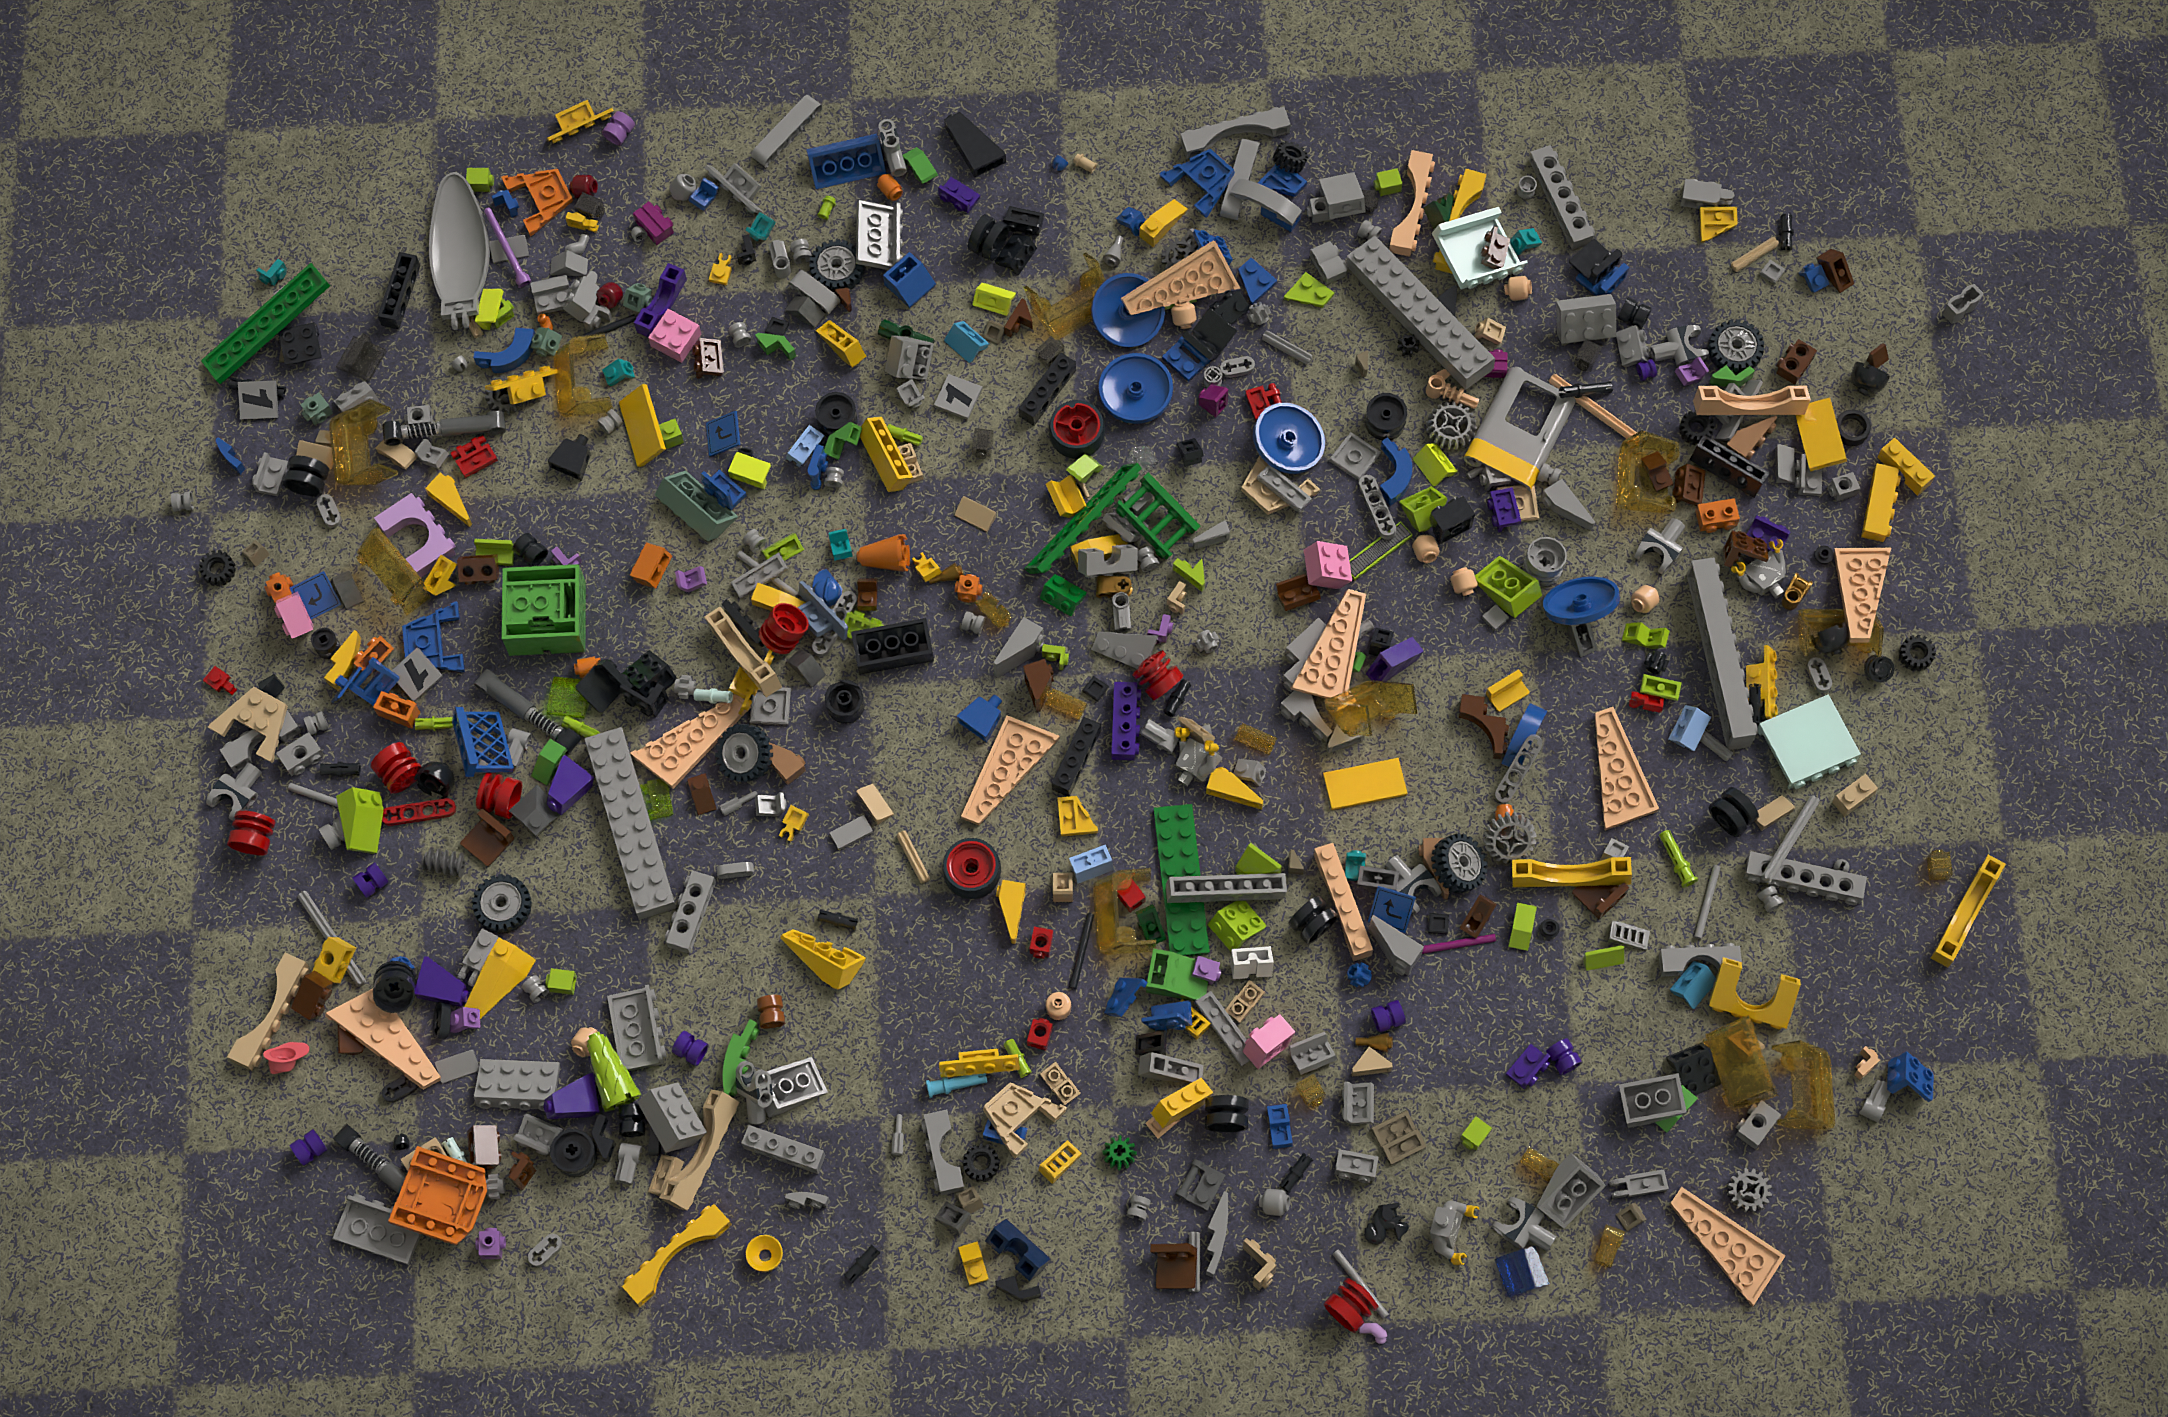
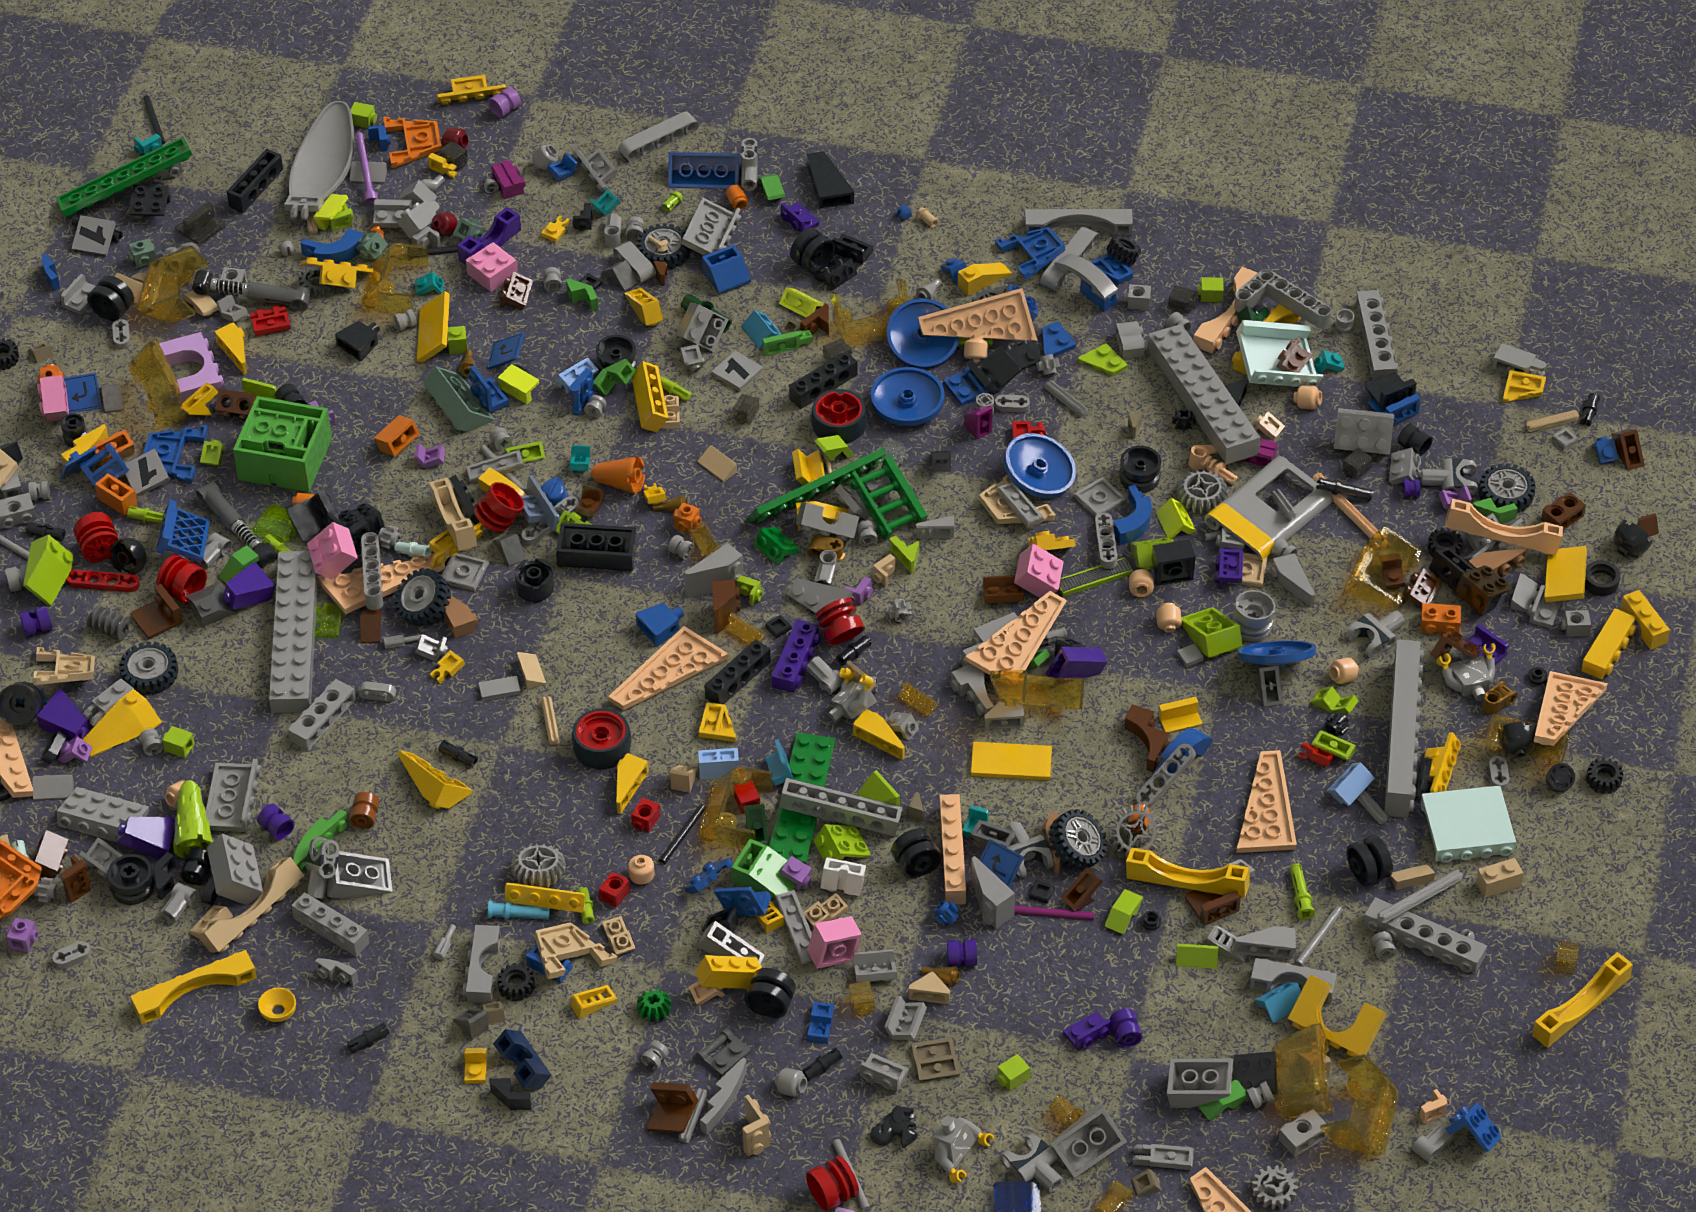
camera: 15 degrees right, 20 degrees down
(264, 234) = (153, 117): none -> black bar
(427, 923) = (67, 669): none -> tan wing
(473, 632) = (212, 453): none -> lime bracket
(639, 728) = (332, 550): none -> bright pink brick
(686, 744) = (372, 571): none -> light grey beam
(691, 461) = (464, 368): none -> pearl gold cone
(838, 270) = (661, 245): none -> tan hand
(966, 1020) = (538, 865): none -> light grey gear
(996, 351) = (786, 342): none -> bright green hinge
(1150, 852) = (779, 765): none -> dark azure panel
(1326, 530) = (1049, 542): none -> yellow plate
(1342, 195) = (1161, 288): light grey panel -> none
(1465, 180) = (1284, 293): none -> light grey beam
(1533, 422) = (1283, 503): none -> light grey axle
(1672, 924) = (1270, 943): none -> light grey slope
(1708, 1095) = (1257, 1098): none -> light grey wheel
(1749, 473) = (1480, 587): none -> dark brown bracket

